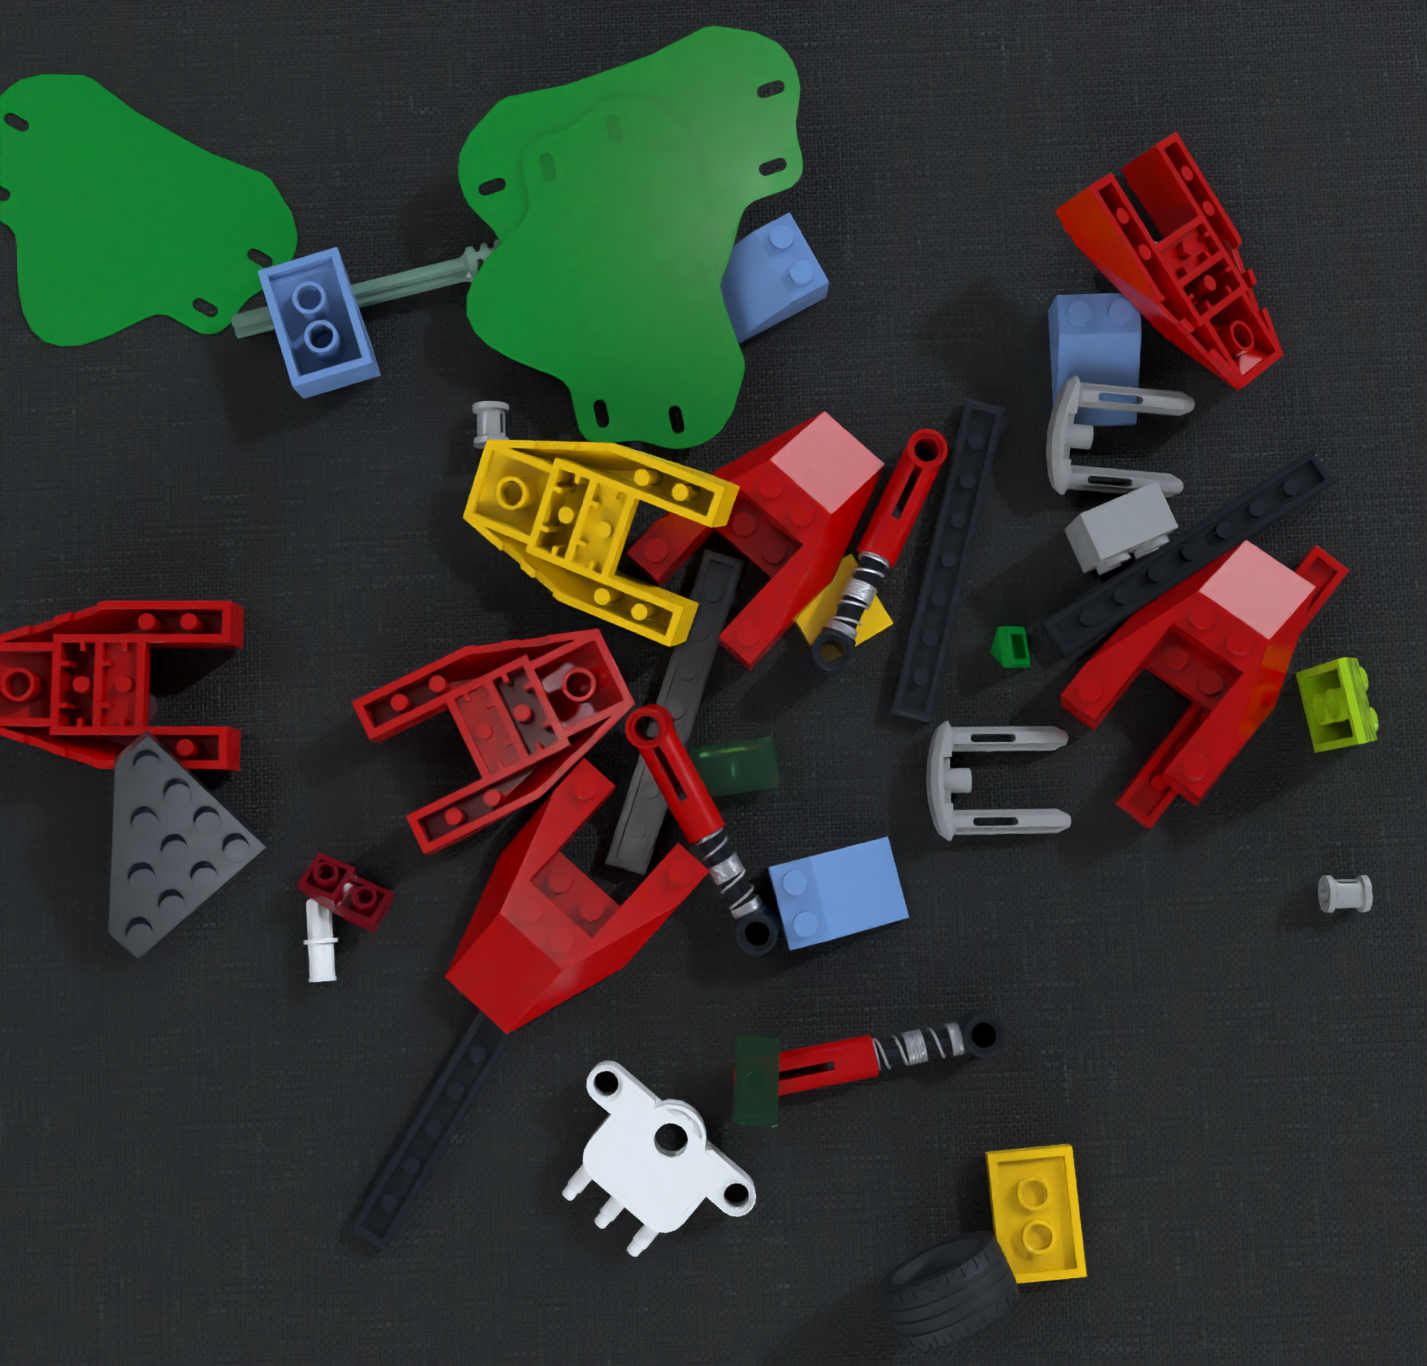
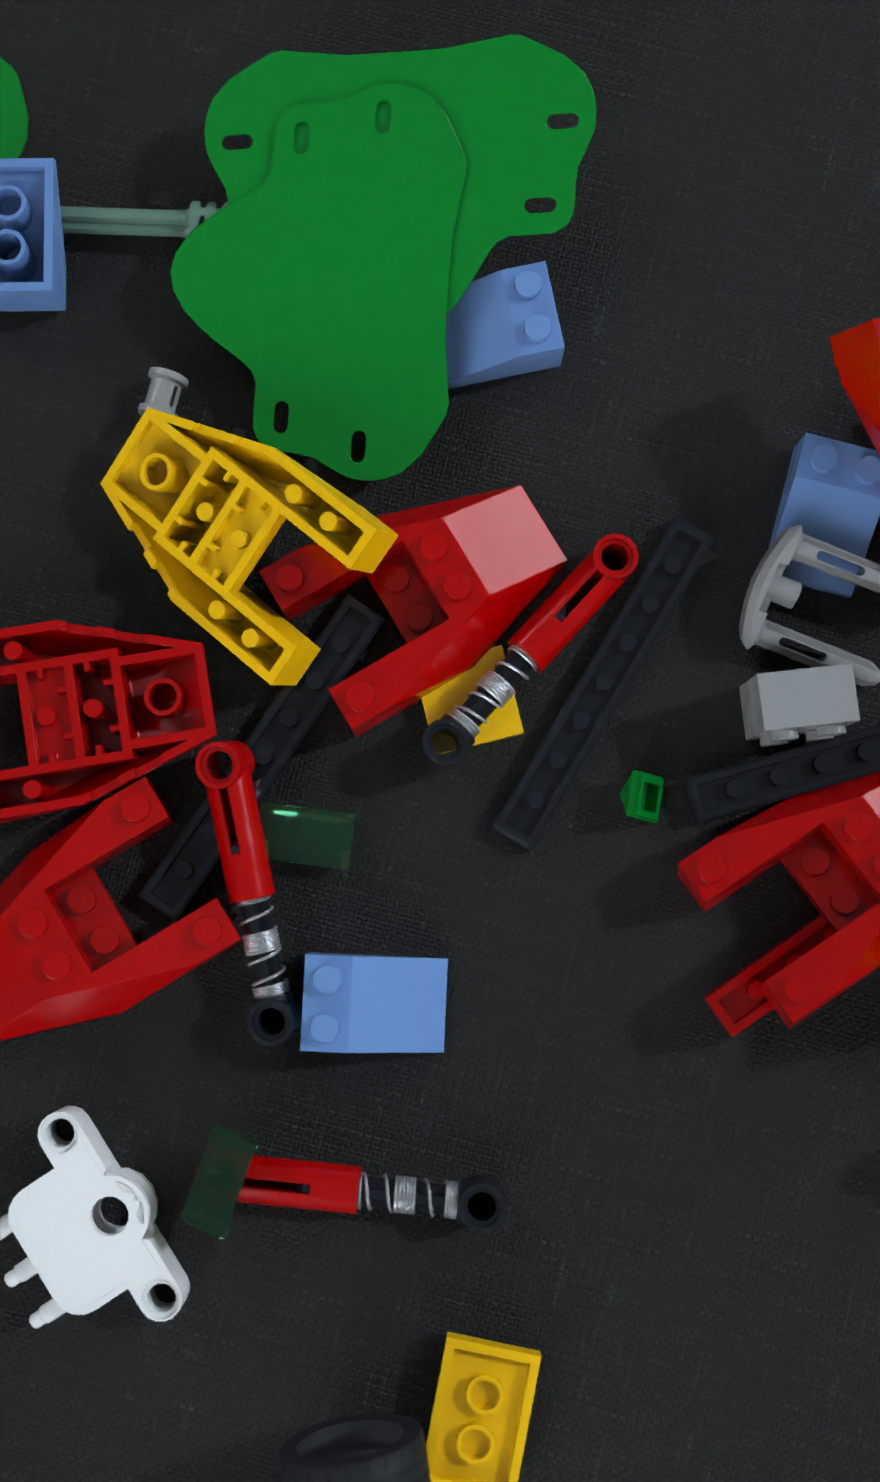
camera: 20 degrees right, 0 degrees up
(943, 780) = (526, 918): light grey piece -> none

